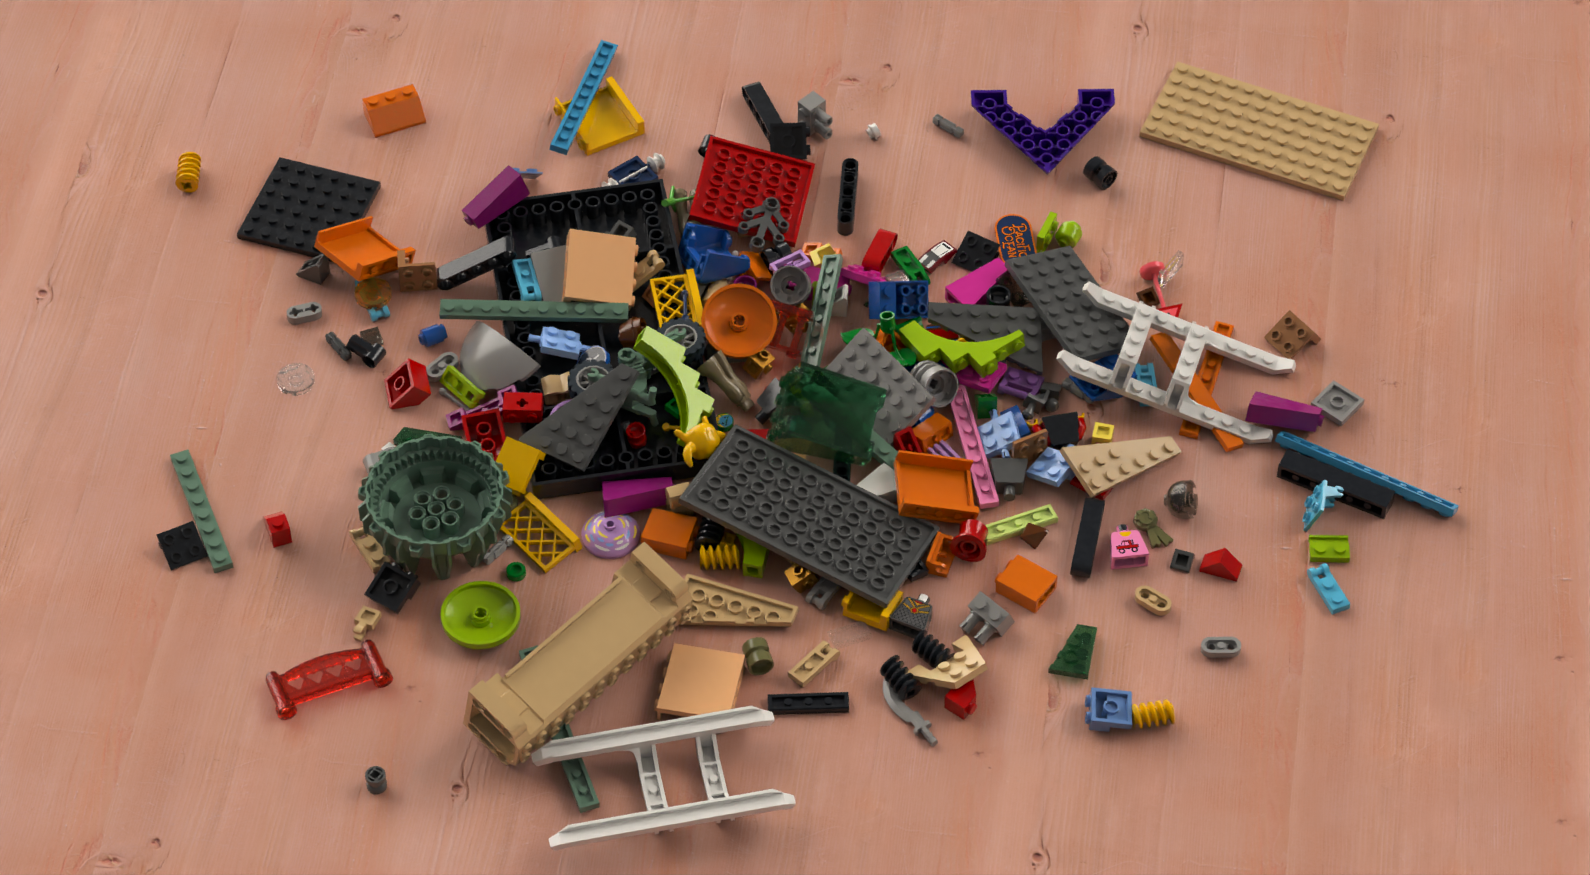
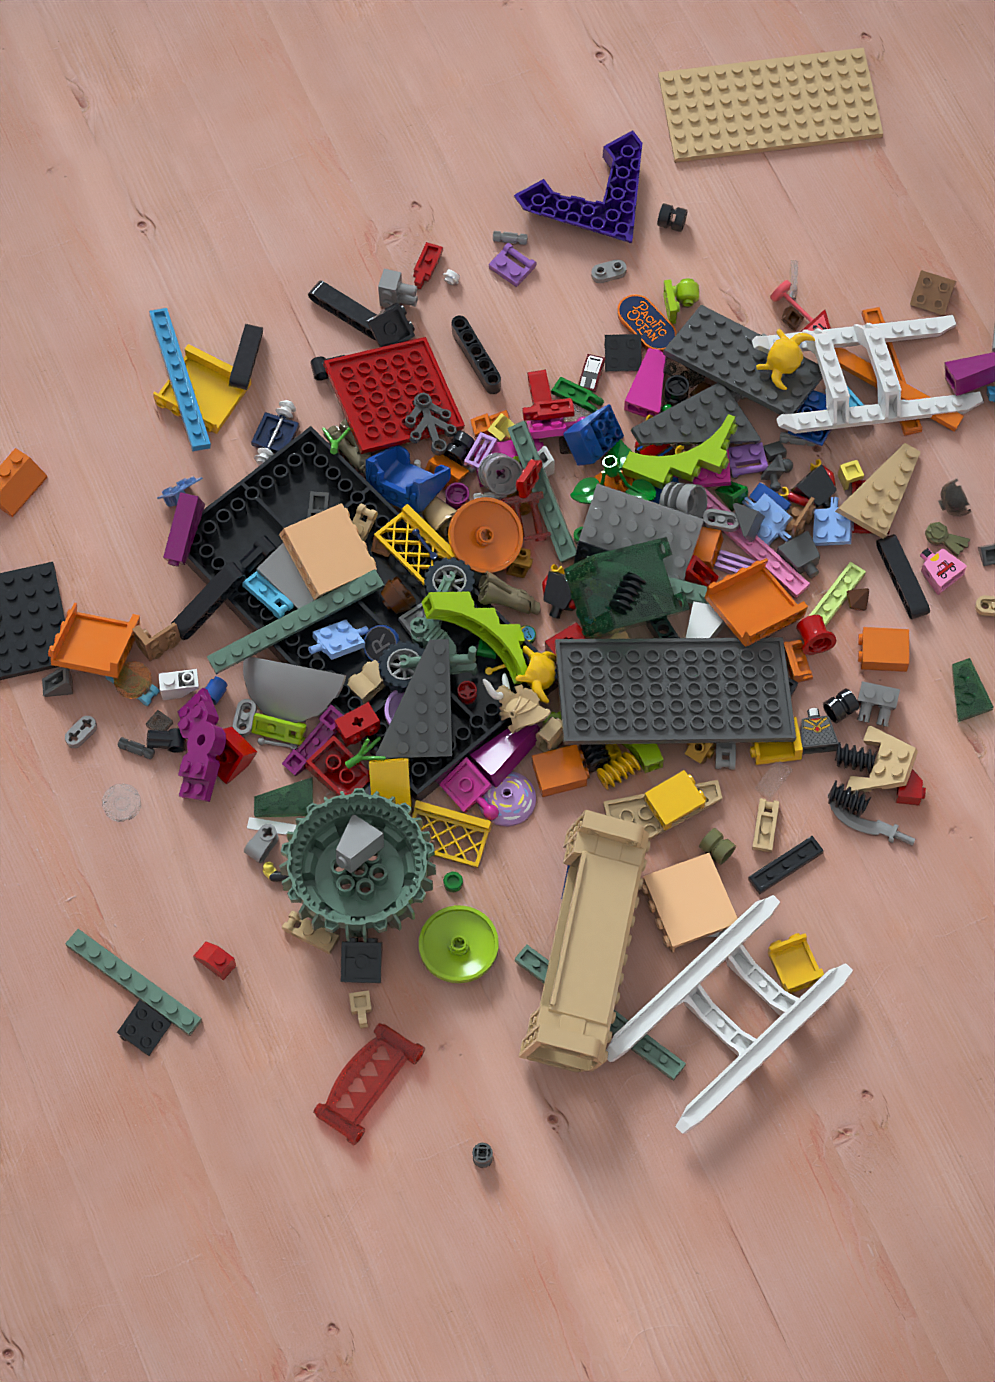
camera: 30 degrees left, 15 degrees up
(393, 359) = (204, 743): none -> magenta plate
(405, 314) = (178, 683): none -> white slope
(445, 485) = (358, 844): none -> light grey slope
(504, 433) = (360, 756): none -> bright green plant
(580, 506) = (467, 786): none -> dark pink plate
(650, 105) = (246, 356): none -> black beam
(665, 458) = (520, 707): none -> tan helmet
(746, 597) = (674, 799): none -> yellow panel
(754, 773) = (794, 963): none -> yellow panel
(808, 295) = (528, 478): none -> red hinge
(822, 418) = (626, 592): none -> black piece
(859, 112) = (426, 264): none -> red hinge
(873, 261) = (549, 410): none -> red hinge
(928, 149) = (510, 270): none -> medium lavender plate
(951, 605) = (843, 704): none -> black wheel
(958, 415) = (721, 519): none -> light grey plate
(979, 425) = (749, 520): none -> dark grey slope
(1014, 189) = (609, 271): none -> light grey plate
(1103, 308) = (784, 356): none -> yellow piece

